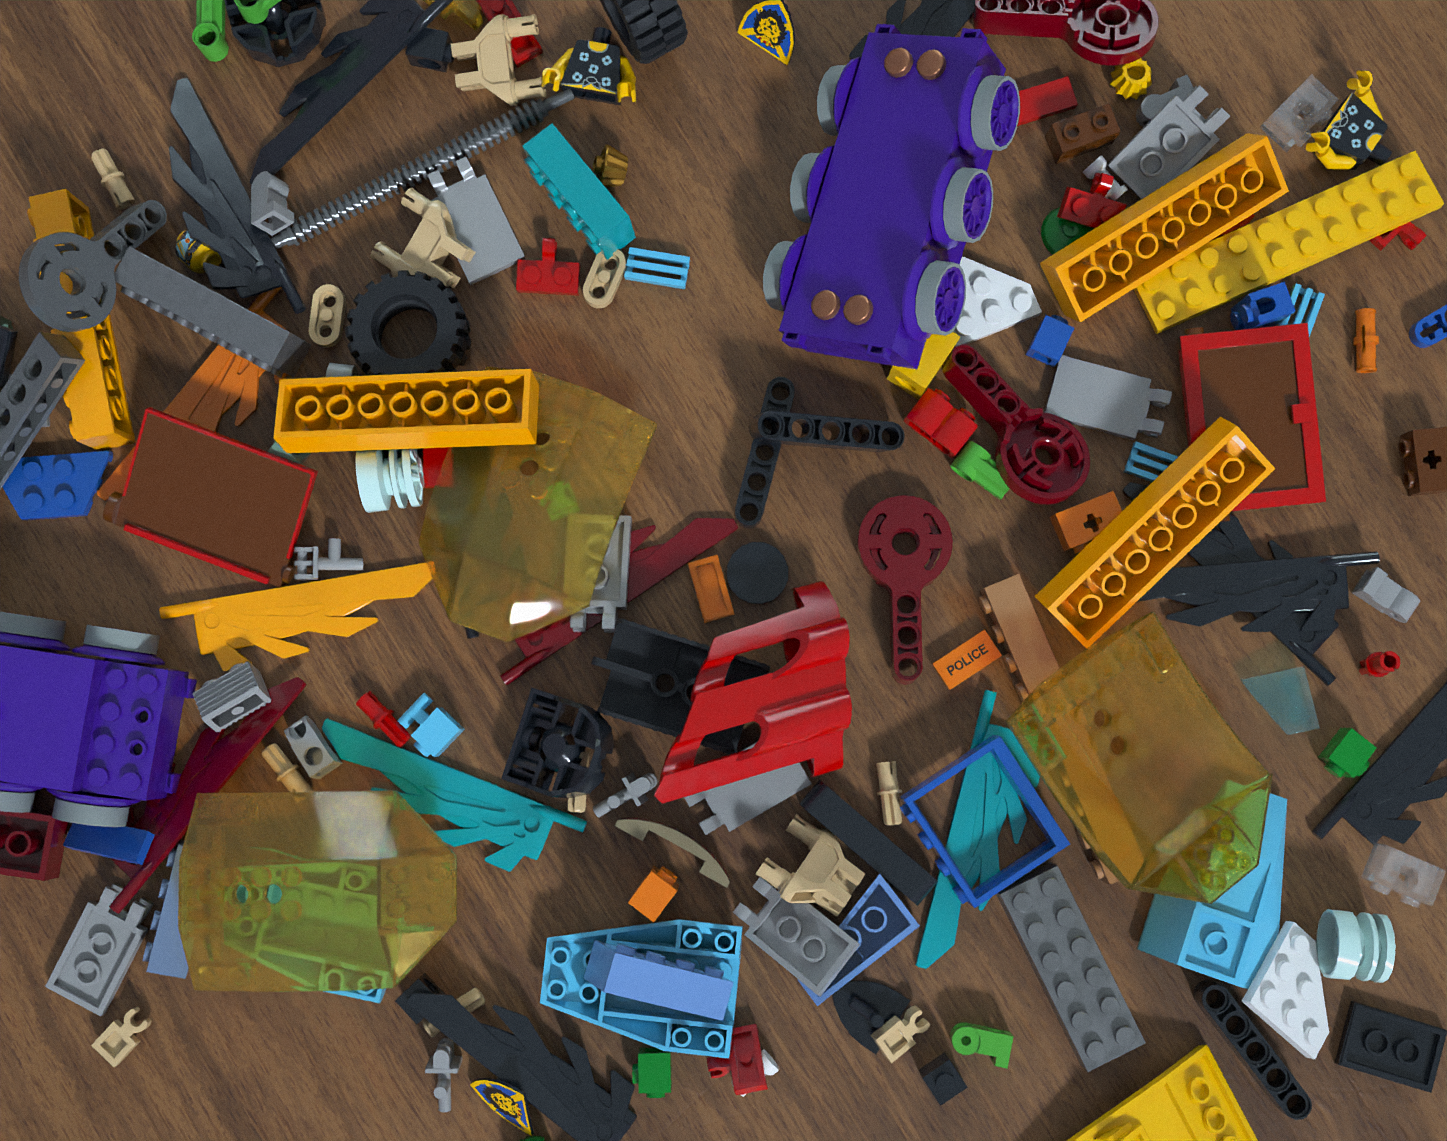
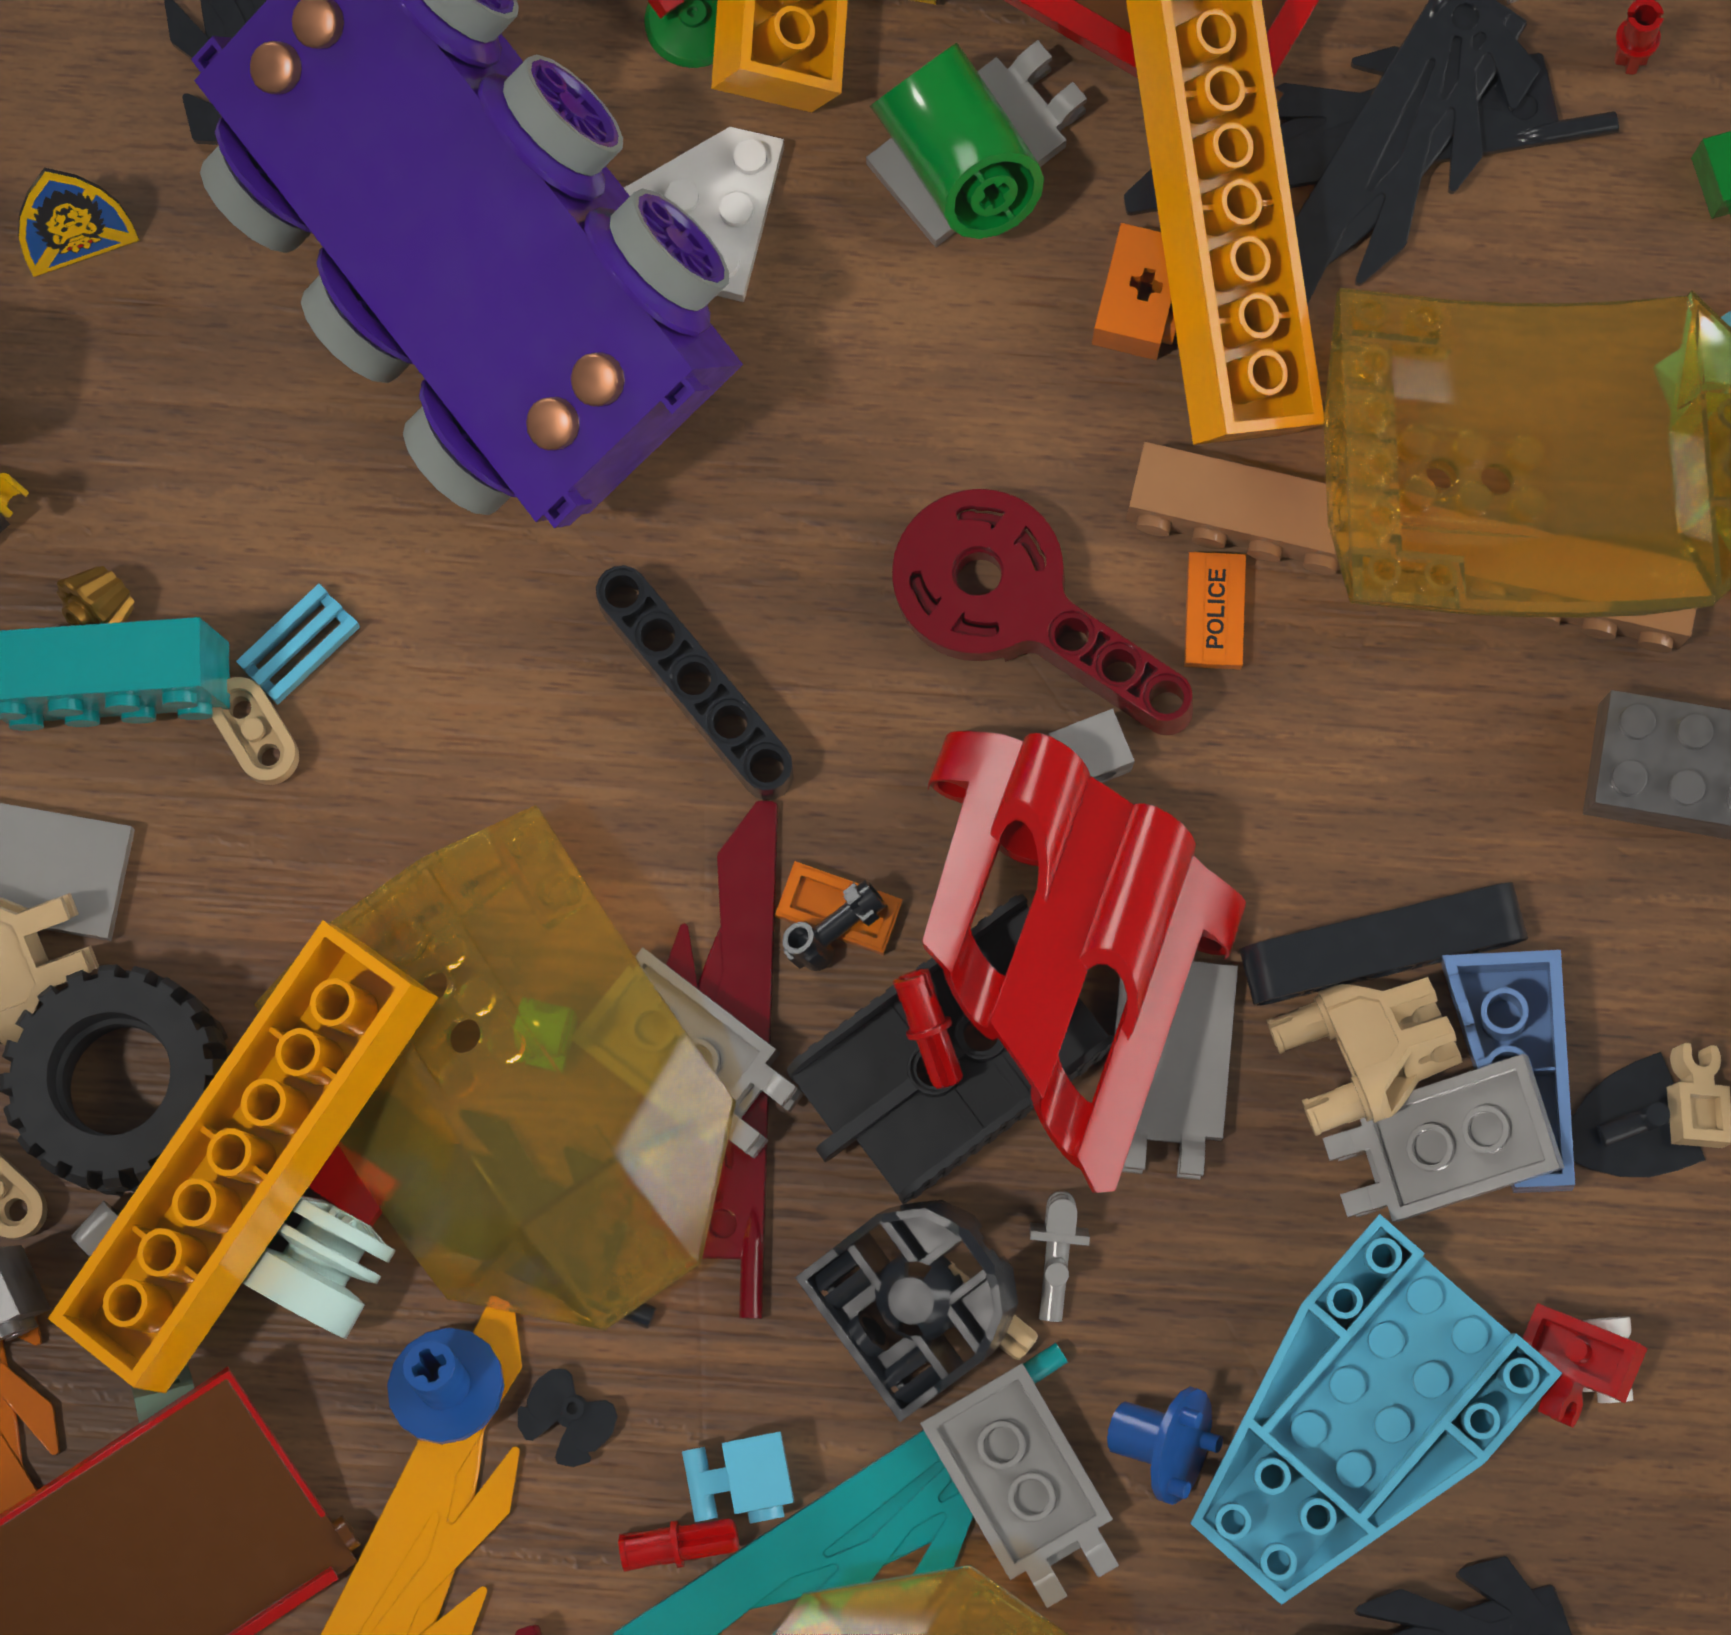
camera: 55 degrees left, 5 degrees down
(332, 562) = (380, 1451): light grey arm -> none
(379, 570) = (445, 1386): none -> blue piece
(407, 642) = (587, 1423): none -> black piece
(515, 850) = (1021, 1480): none -> light grey tile
(548, 275) = (184, 813): red plate -> none
(576, 902) = (1169, 1441): none -> blue piece
(653, 1072) = (1503, 1508): green brick -> none
(654, 892) = (1236, 1309): orange brick -> none
(658, 981) = (1371, 1394): medium blue wedge -> none
(679, 667) = (928, 1027): none -> red axle
(685, 591) = (812, 946): none -> black bar
(711, 866) = (1252, 1201): dark tan slope -> none
(757, 573) = (865, 822): black tile -> none
(840, 428) = (718, 586): black beam -> none
(863, 650) = (1099, 745): none -> light grey brick
(889, 793) = (1331, 861): tan axle -> none
(934, 354) = (755, 385): yellow piece -> none
(941, 422) = (839, 396): red brick -> none
(974, 831) = (1453, 751): teal animal -> none
(976, 465) = (939, 391): bright green piece -> none
(1018, 432) = (933, 299): dark red beam -> none
(1050, 340) = (834, 156): blue brick -> none
(1055, 837) = (1483, 662): blue window -> none
(1095, 394) = (962, 146): none -> green brick
(1145, 449) = (1102, 132): medium azure tile -> none
(1285, 698) = (1596, 202): clear light blue wing -> none

